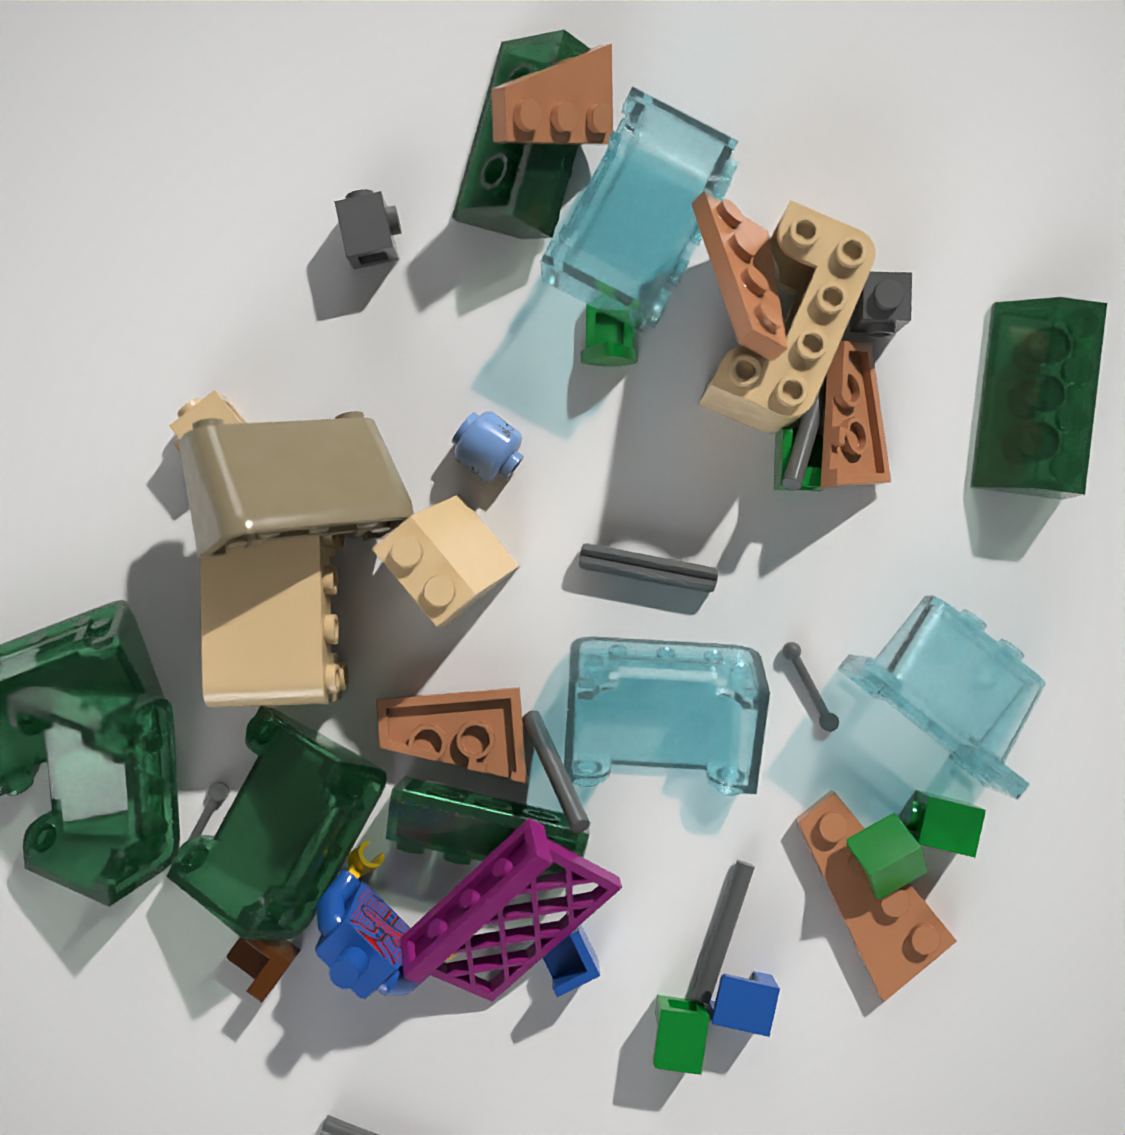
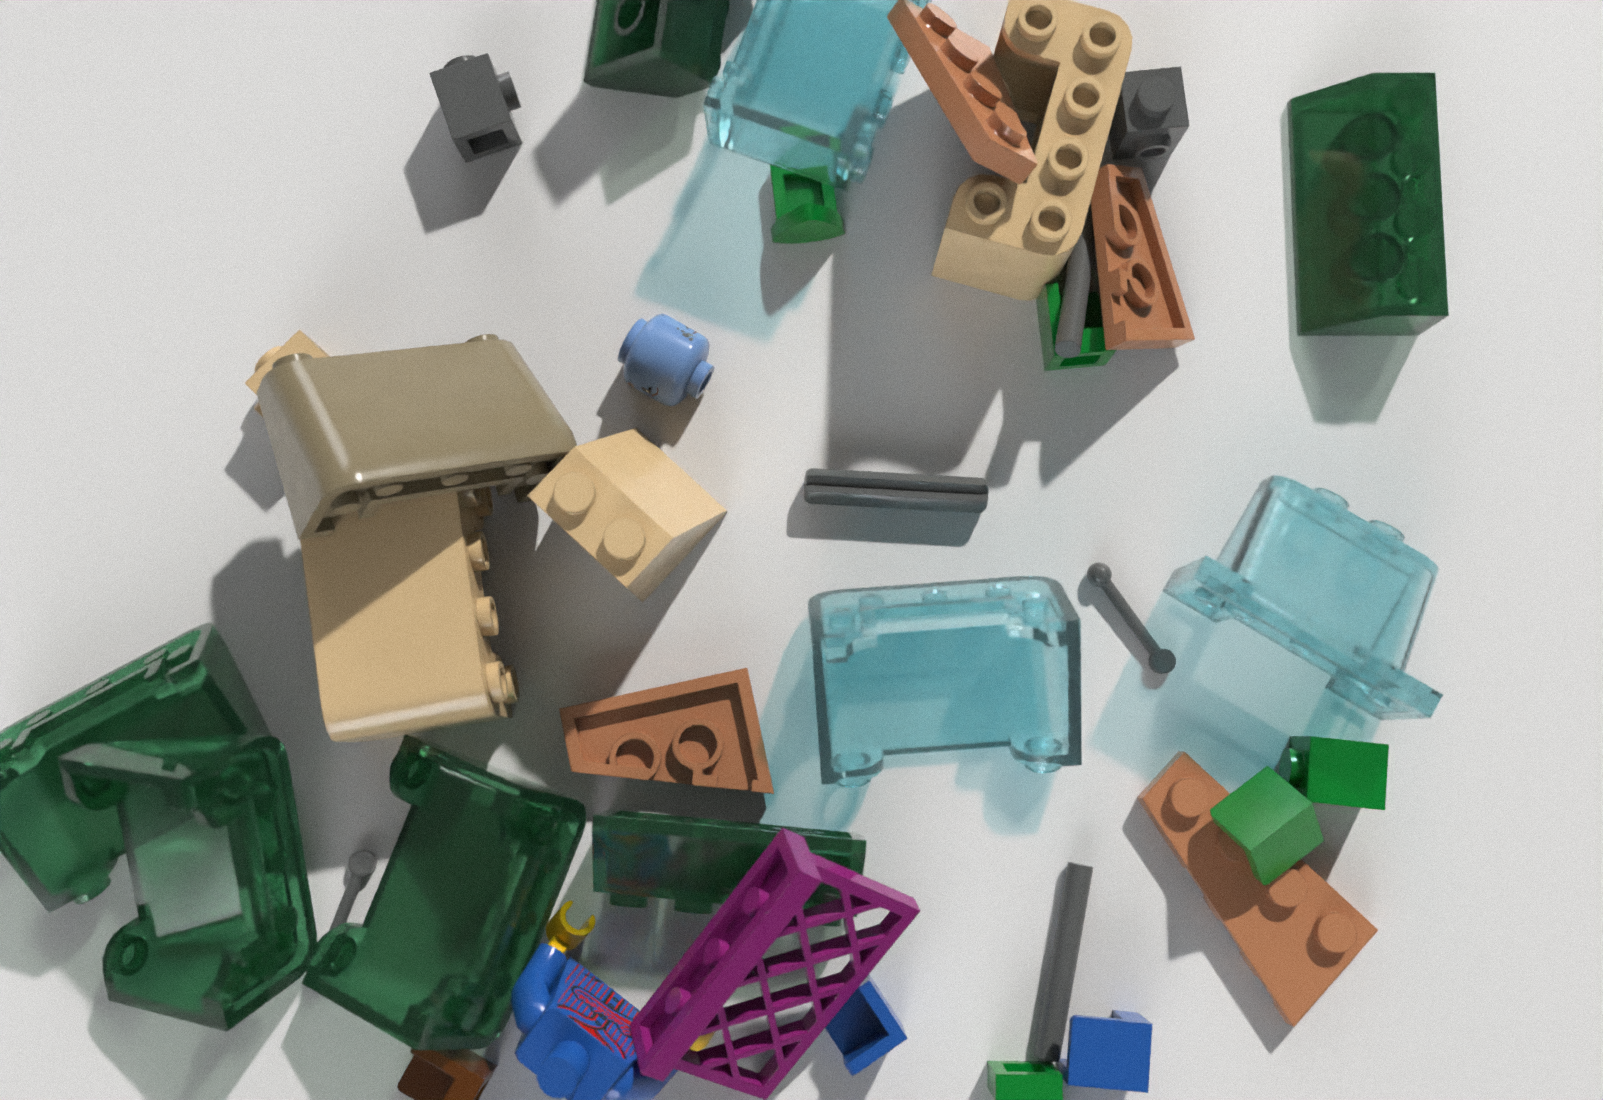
camera: 10 degrees left, 5 degrees down
(556, 772) = (811, 769): dark grey bar -> none

